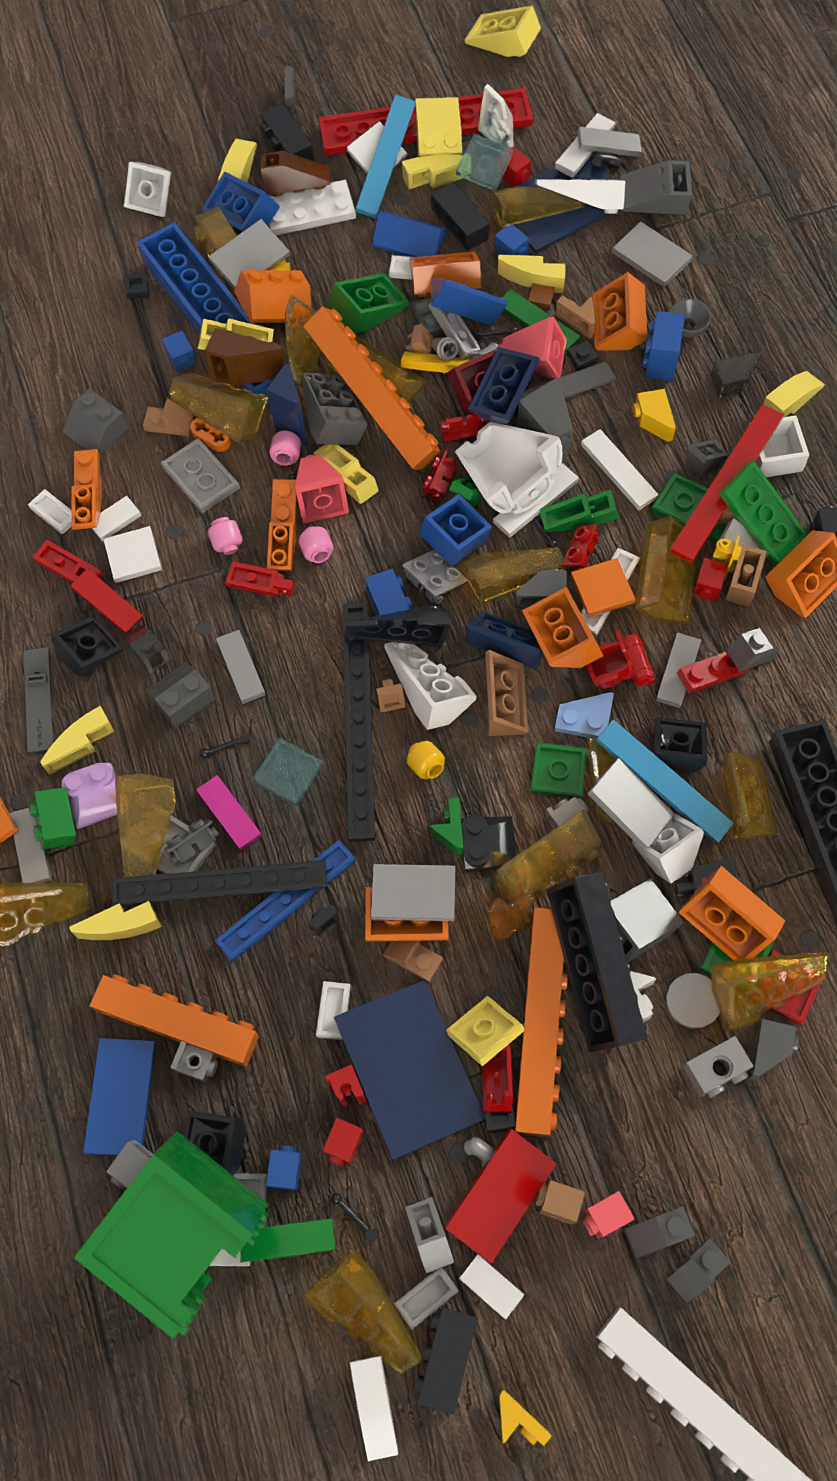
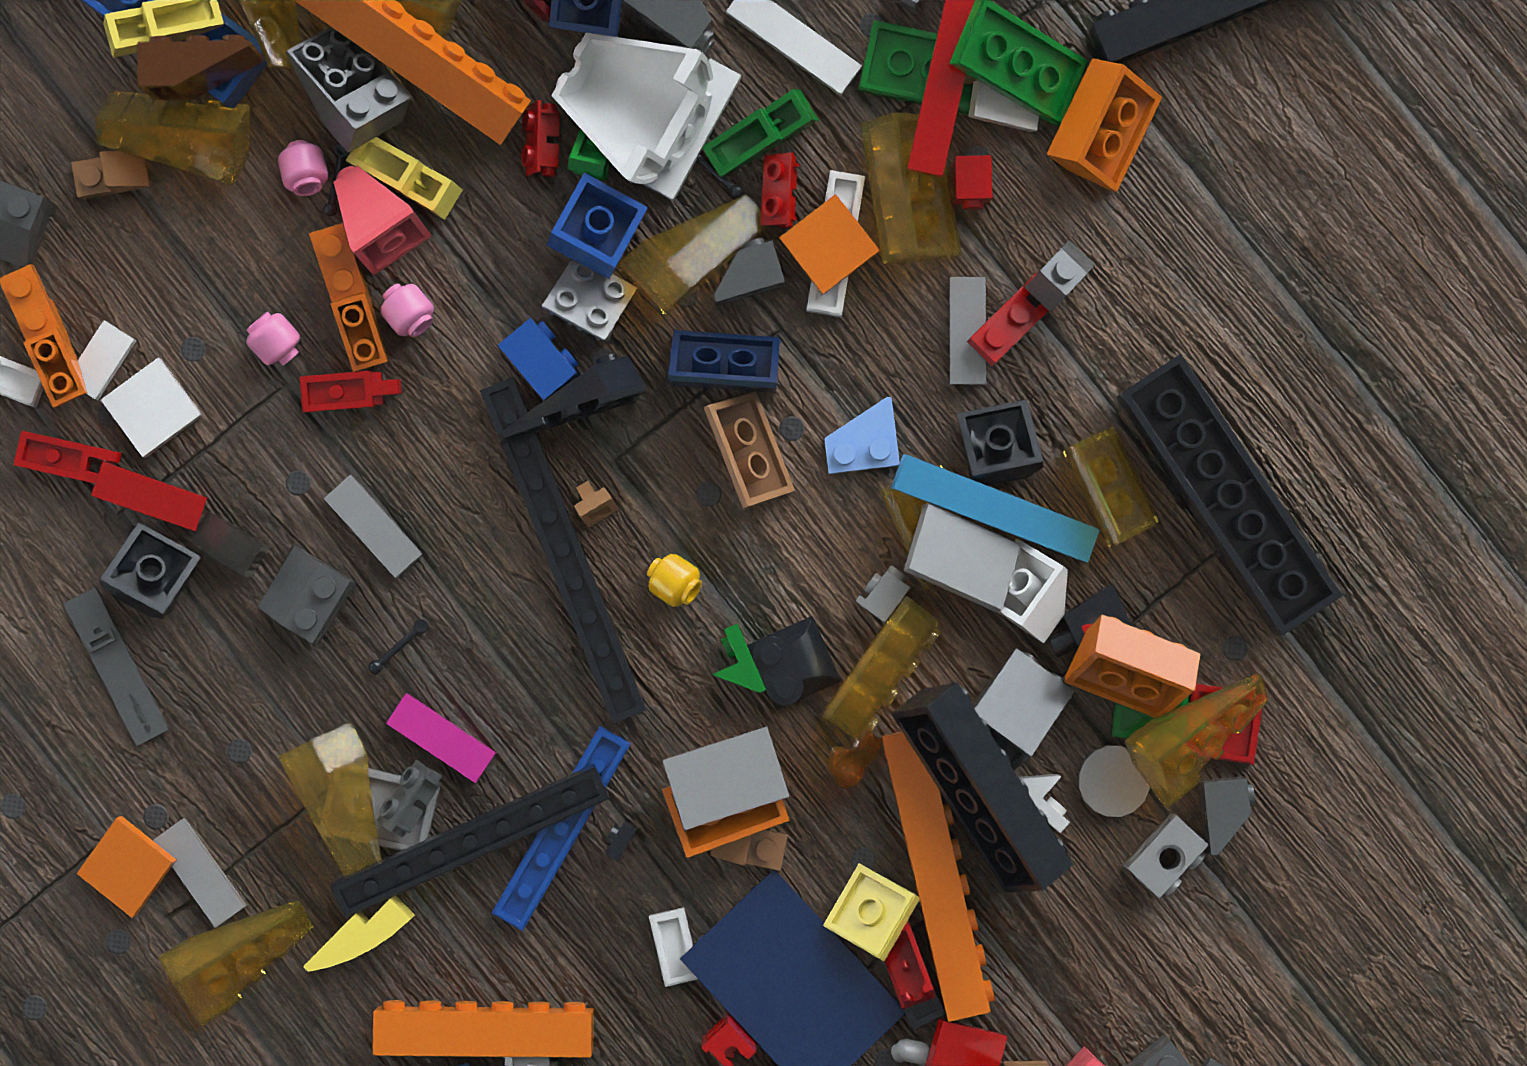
camera: 20 degrees left, 20 degrees up
(53, 818) = (215, 830): green brick -> none
(77, 740) = (199, 710): light yellow slope -> none
(91, 793) = (250, 775): lavender slope -> none
(179, 351) = (79, 54): blue brick -> none
(200, 475) = (194, 248): light grey tile -> none
(208, 436) = (180, 185): orange beam -> none
(286, 404) = (282, 111): dark blue slope -> none
(288, 771) = (496, 654): clear light blue tile -> none
(430, 689) = (646, 475): white wedge -> none
(461, 428) = (544, 47): red hinge -> none
(558, 770) = (852, 530): green tile -> none
(562, 631) = (796, 339): orange slope -> none
(621, 662) = (886, 352): red piece -> none
(727, 552) = (986, 142): yellow hinge -> none
(746, 576) = (1020, 162): medium nougat brick -> none

